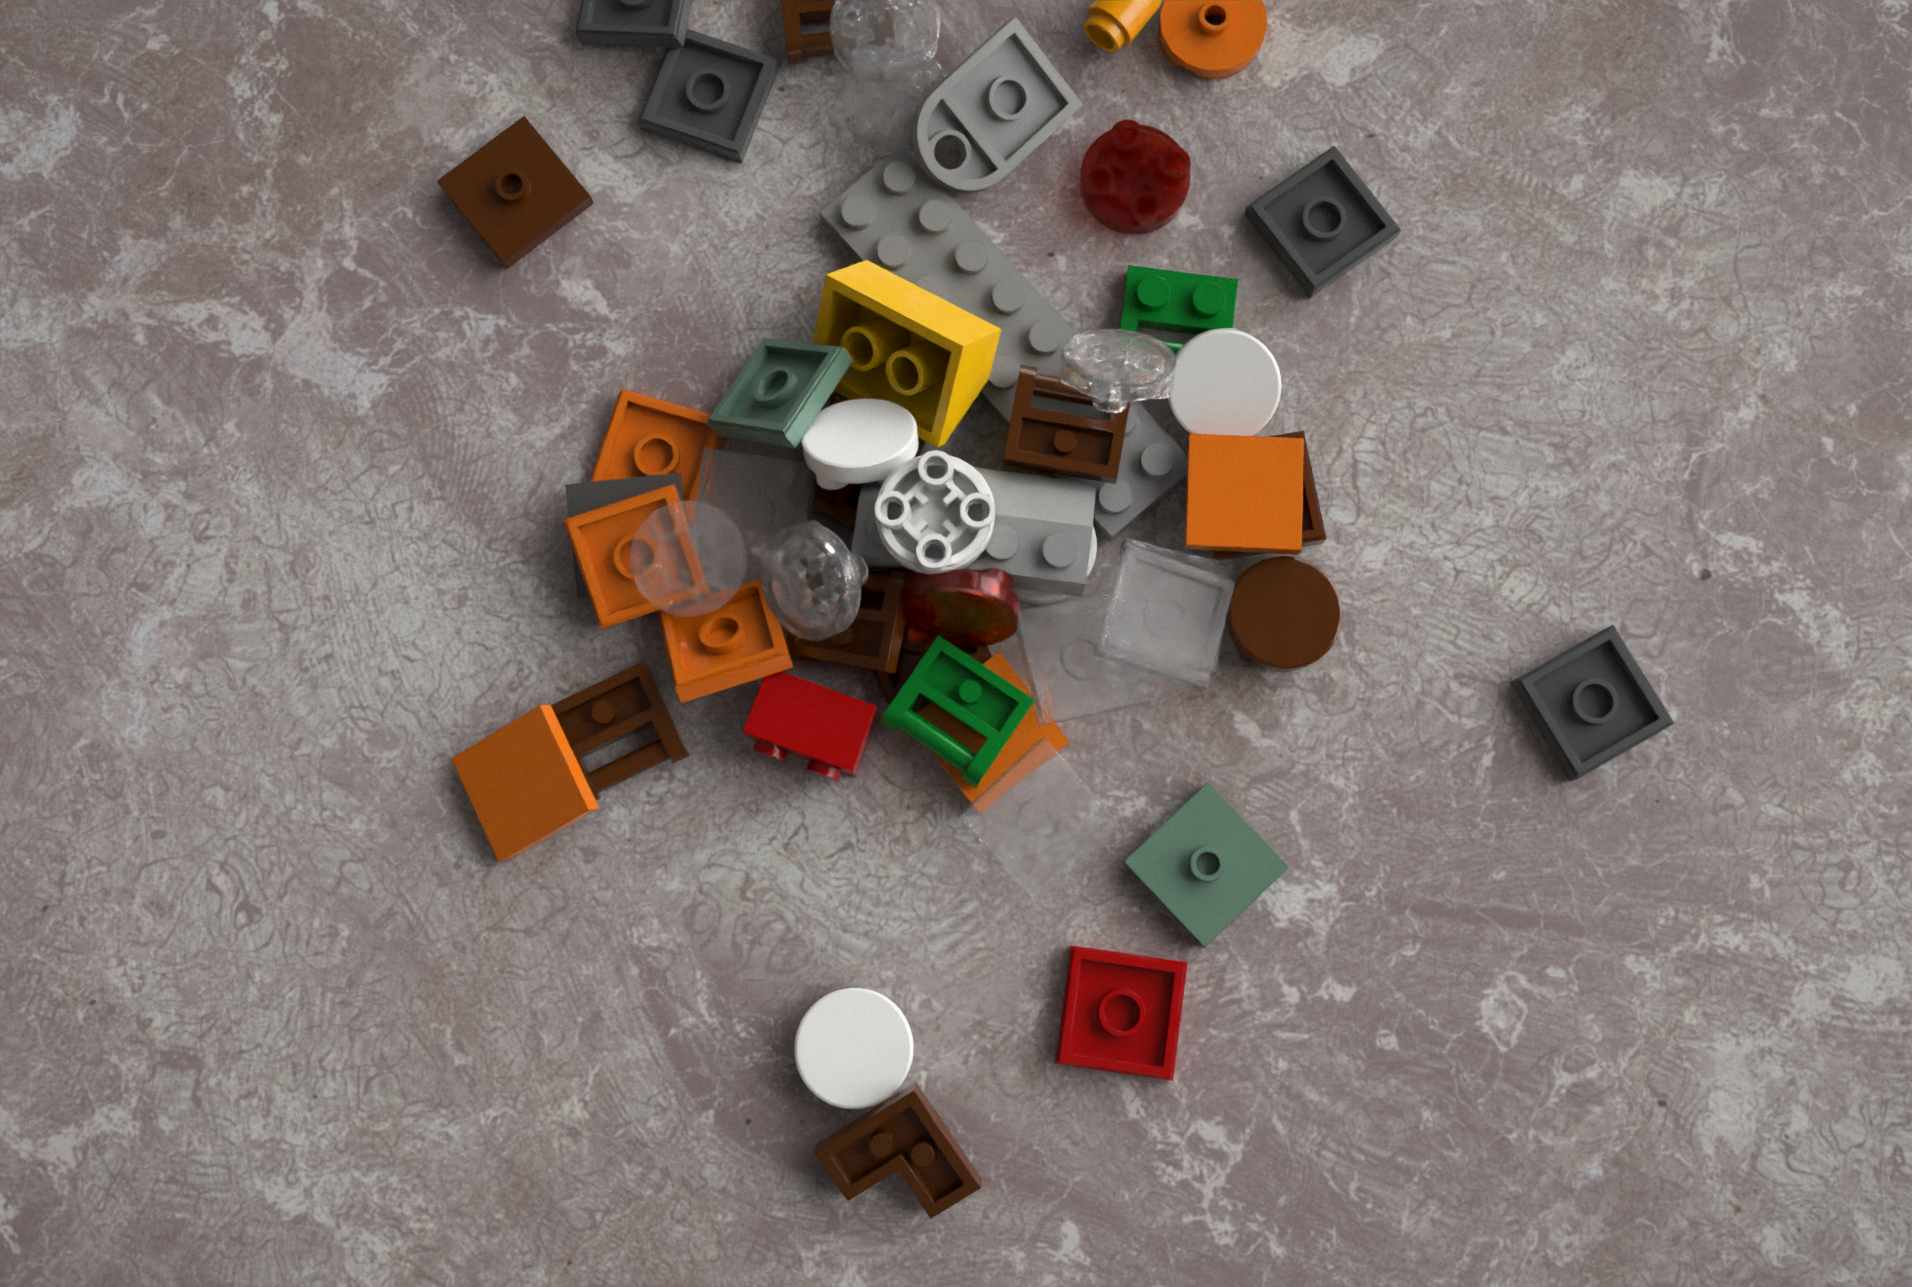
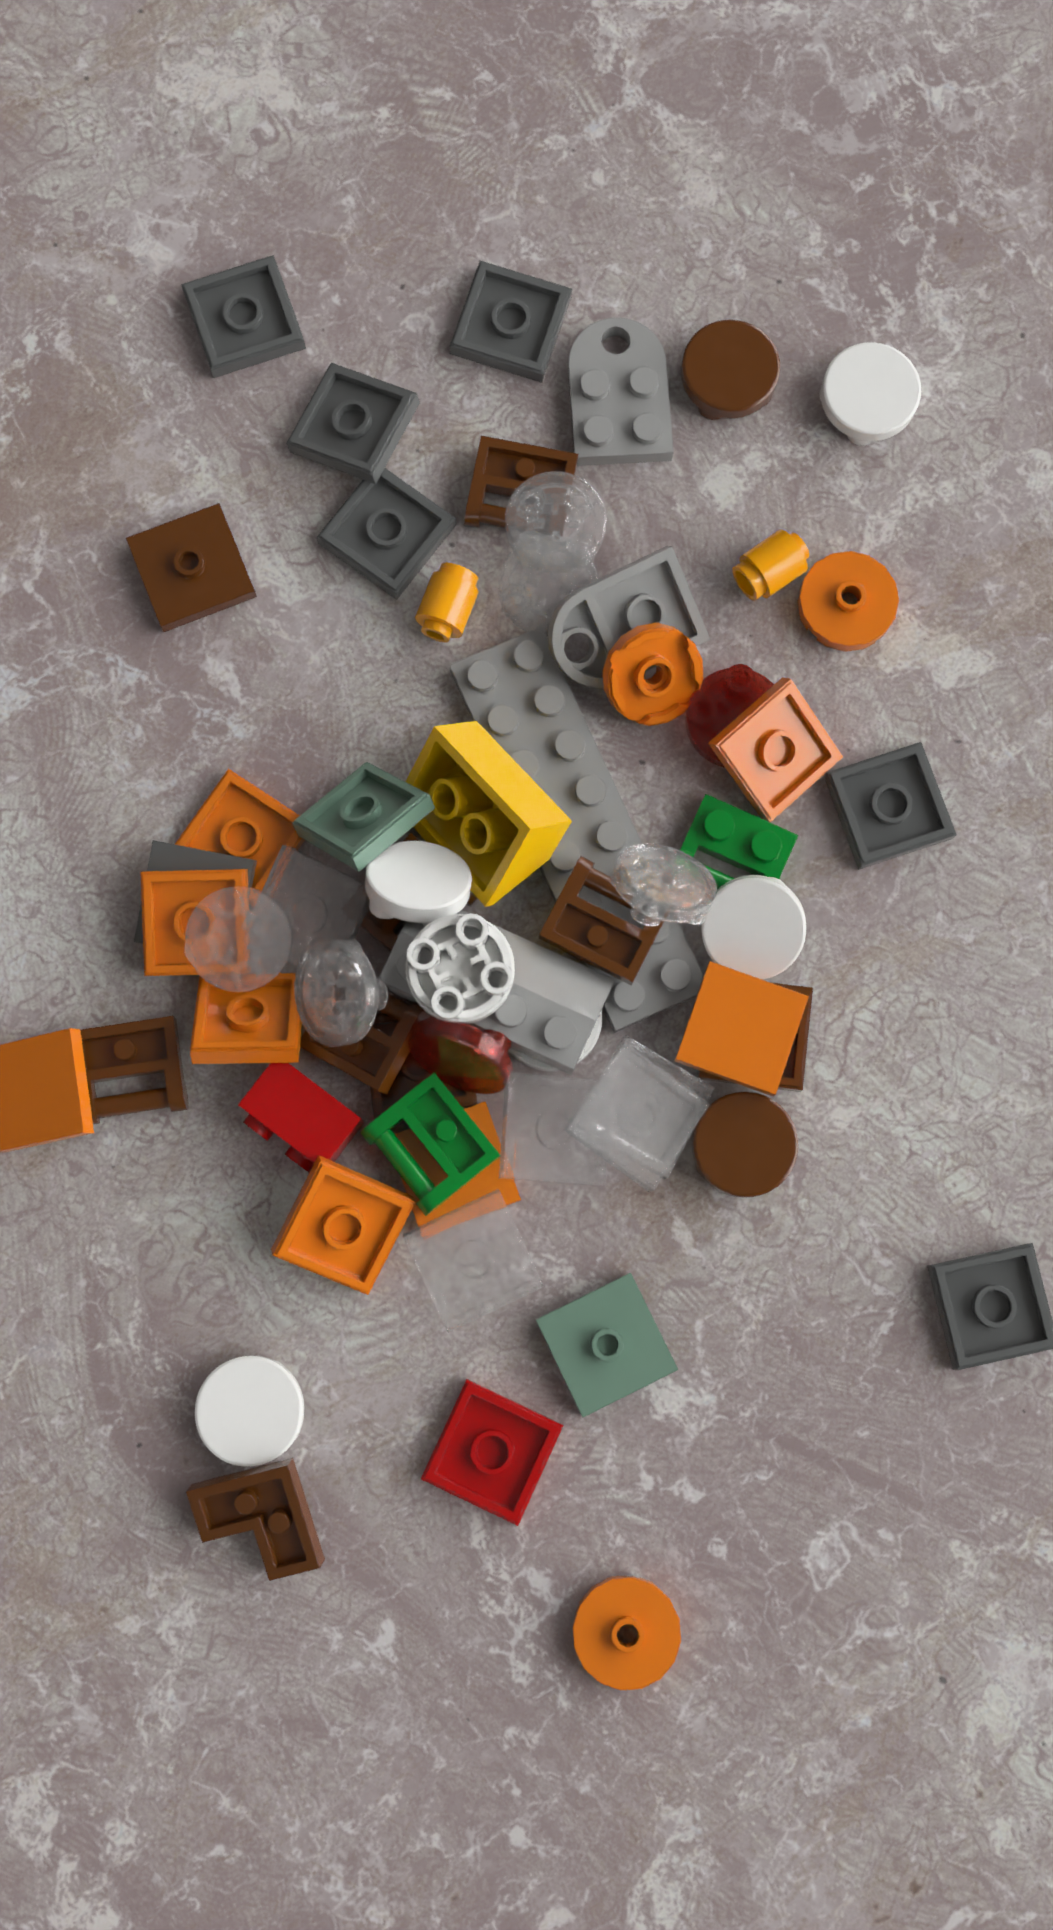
camera: 10 degrees right, 0 degrees up
(797, 147) = (447, 602): none -> light orange brick
(892, 824) = (343, 1225): none -> orange tile
(1057, 168) = (668, 690): none -> orange plate
(1187, 196) = (776, 749): none -> orange tile
(1289, 1149) = (618, 1603): none -> orange plate

